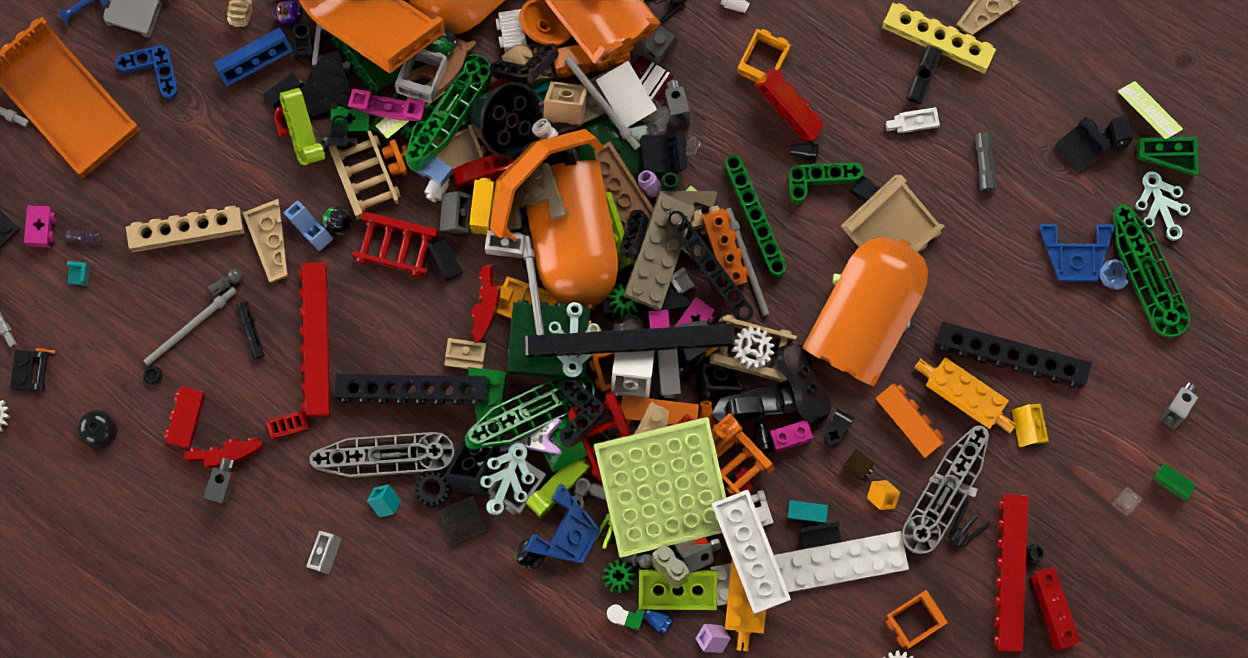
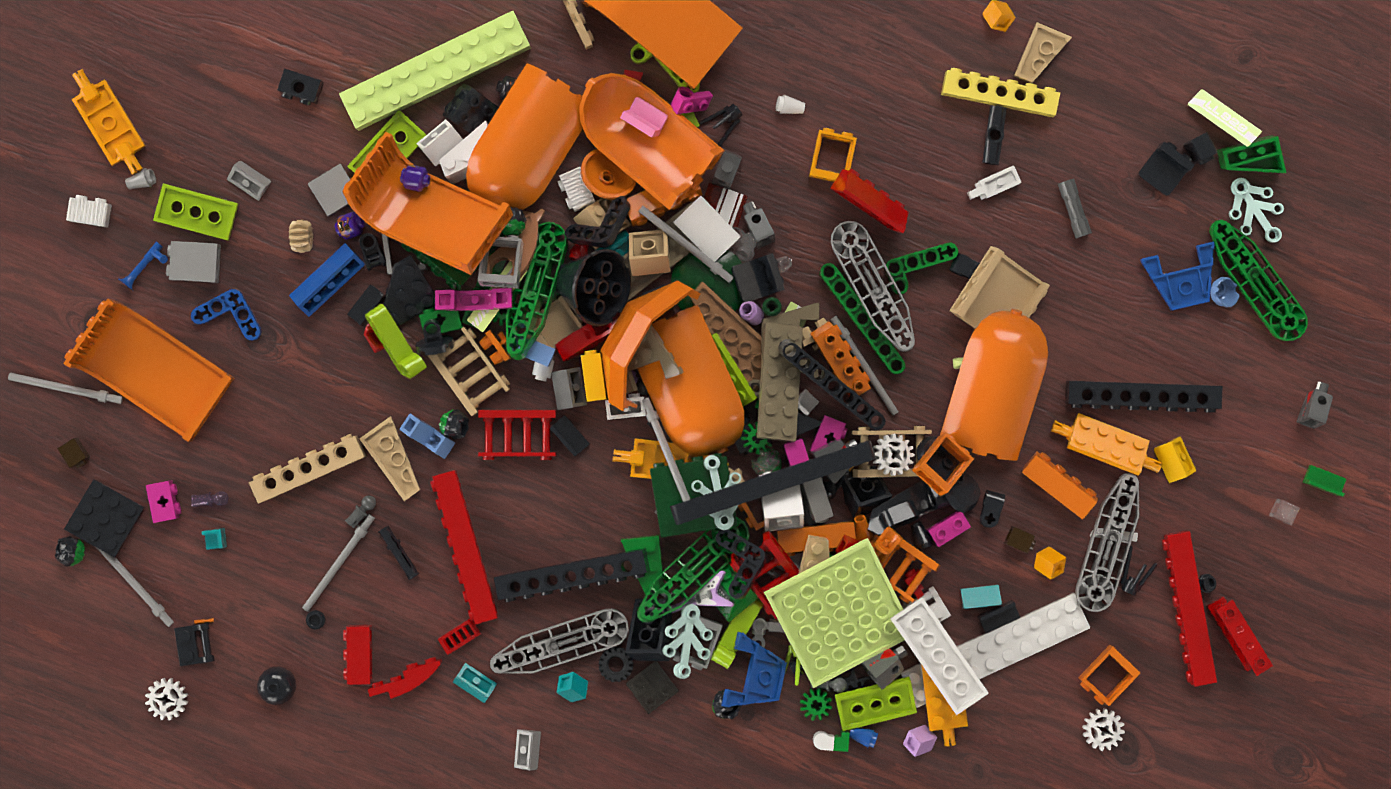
camera: 20 degrees left, 10 degrees up
(216, 488) = (411, 711): dark grey torso -> none
(289, 474) = (474, 683): none -> teal slope
(464, 354) = (613, 525): tan plate -> none
(485, 311) = (624, 473): red slope -> none
(543, 129) = (636, 286): white wheel -> none
(631, 244) = (755, 376): black beam -> none
(674, 569) = (860, 685): brick -> none
(776, 195) = (878, 295): none -> light grey beam
(785, 376) = (930, 477): none -> orange window
(805, 150) = (894, 240): black cone -> none

